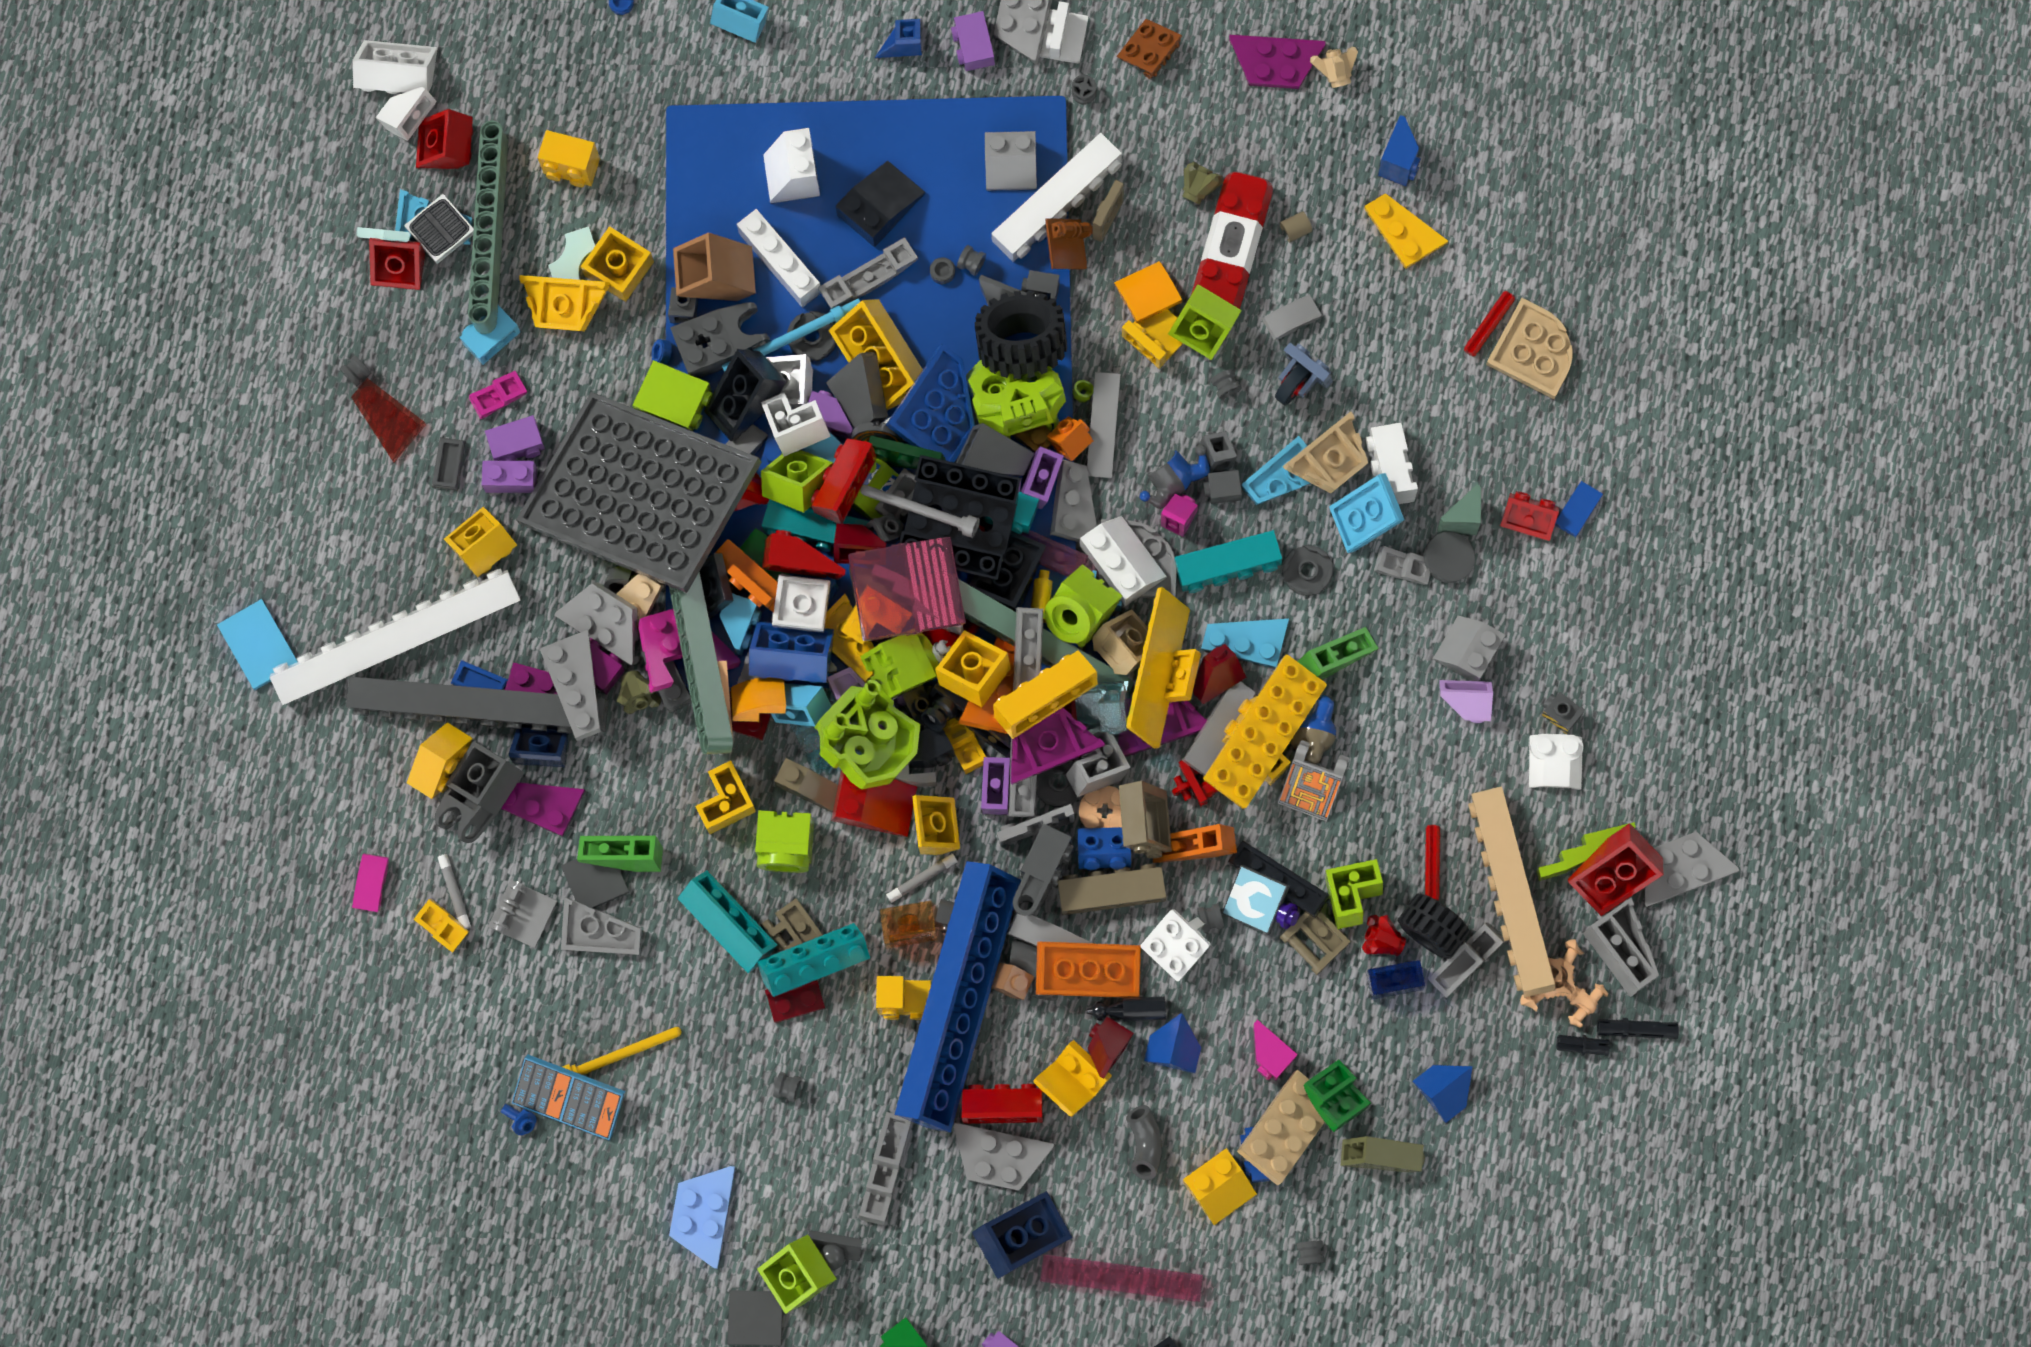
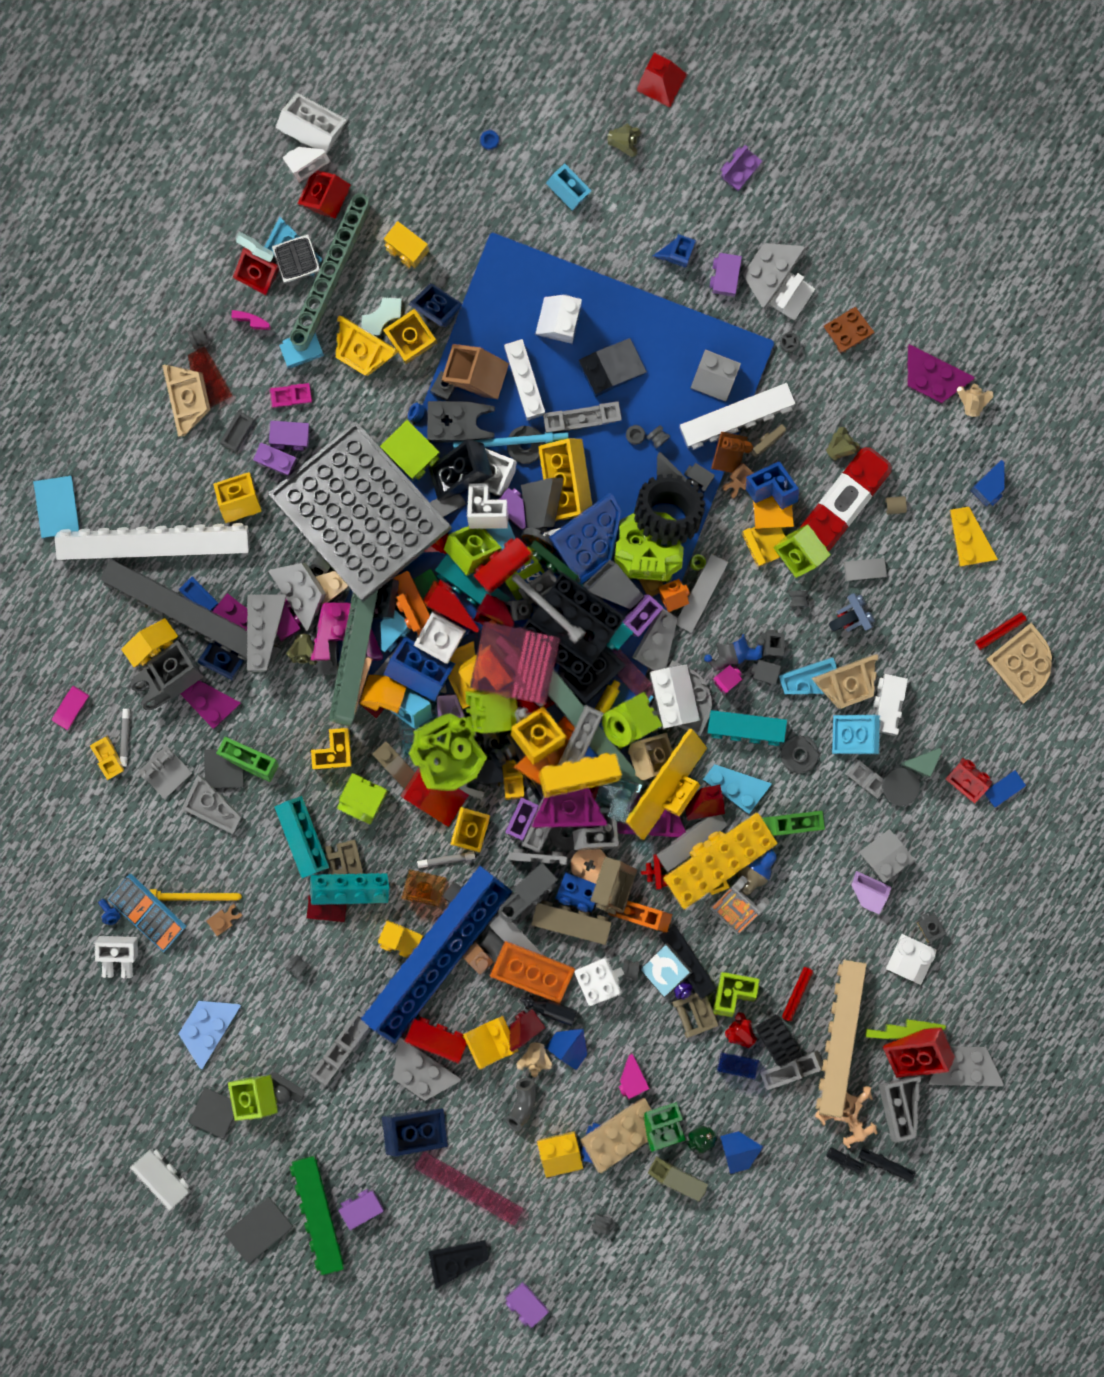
camera: 20 degrees right, 10 degrees up
(370, 446) = (187, 397): none -> tan wing
(421, 323) = (255, 321): none -> dark pink slope
(545, 1159) = (116, 949): none -> white brick
(634, 214) = (436, 305): none -> dark blue slope
(667, 1071) = (222, 921): none -> medium nougat plate
(1093, 270) = (738, 479): none -> medium nougat plate
(1135, 257) = (773, 482): none -> blue brick
(1137, 1079) = (535, 1059): none -> tan rock
(1391, 1093) = (701, 1139): none -> dark green head

